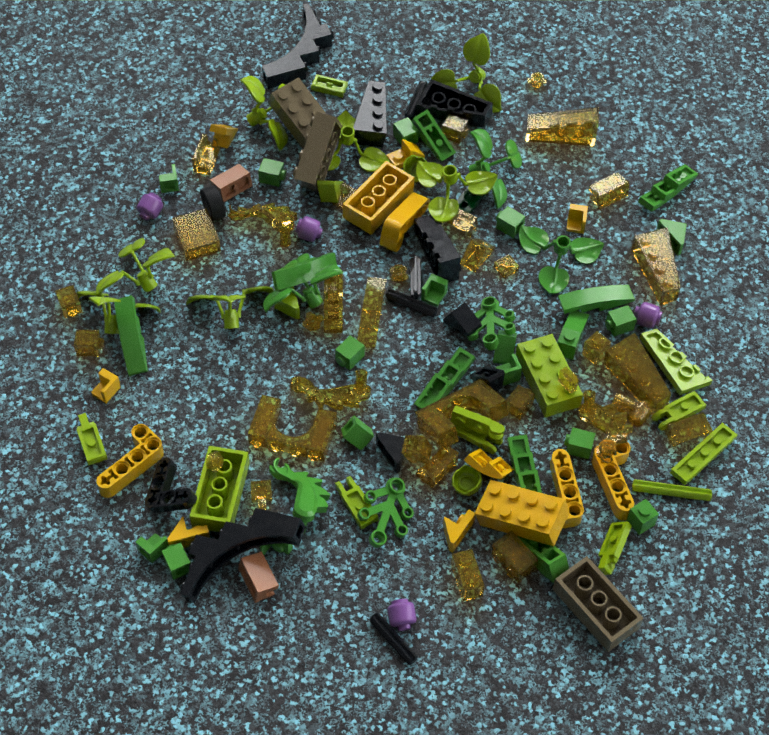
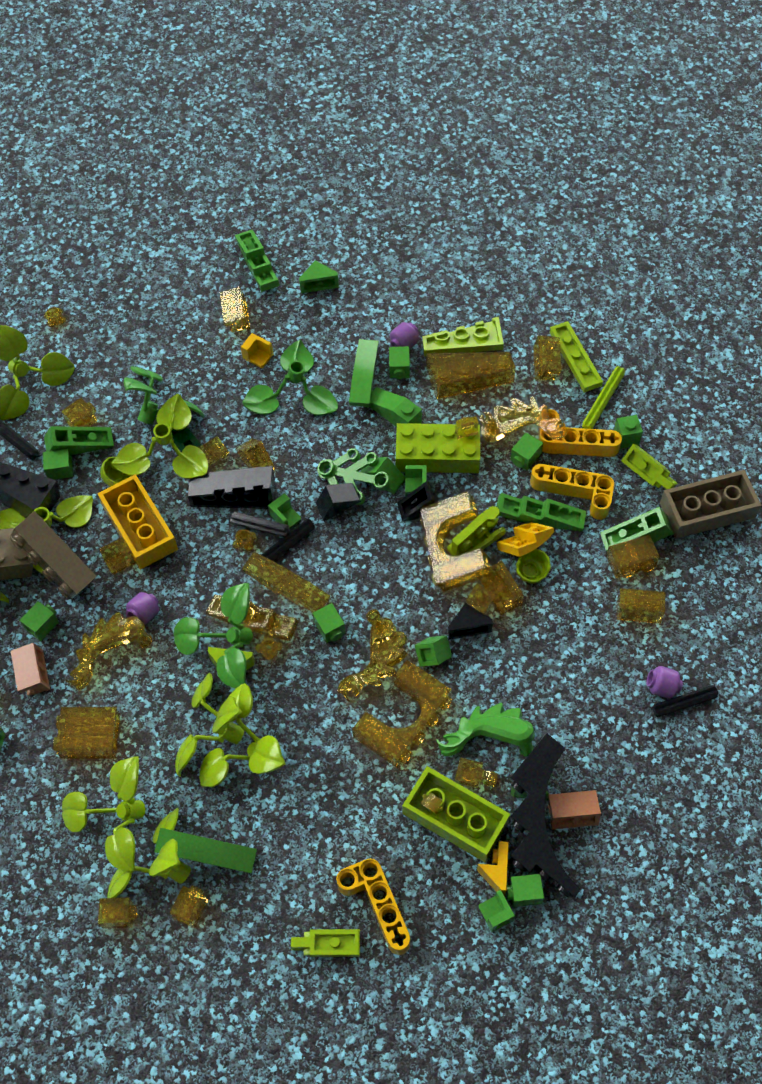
camera: 65 degrees left, 5 degrees up
(107, 387) = (259, 904): yellow panel -> none
(149, 206) = (18, 773): medium lavender head -> none
(158, 498) = (442, 879): black beam -> none
(213, 202) = (53, 695): black tyre -> none
(220, 340) = (263, 754): none -> lime plant
(301, 271) = (212, 630): bright green slope -> none
(329, 190) = (100, 566): lime slope -> none
(354, 501) = (517, 681): lime hinge -> none
(388, 510) = (520, 638): bright green plant -> none
(401, 220) = (182, 507): yellow beam -> none
(407, 149) = (87, 477): yellow slope -> none
(446, 100) = (44, 405): black wedge -> none
(446, 379) = (402, 545): bright green slope -> none
(456, 531) = (588, 599): yellow slope -> none
(506, 266) = (283, 436): clear yellow plate -> none
(509, 221) = (231, 410): bright green brick -> none
(520, 402) = (457, 482): clear yellow brick -> none
(522, 511) = (595, 528): yellow brick -> none
(564, 127) = (136, 315): clear yellow wedge -> none
(595, 347) = (423, 394): clear yellow brick -> none
(636, 411) = (507, 389): clear yellow piece -> none
(657, 262) = (348, 304): clear yellow wedge -> none
(679, 409) = (521, 355): lime hinge -> none

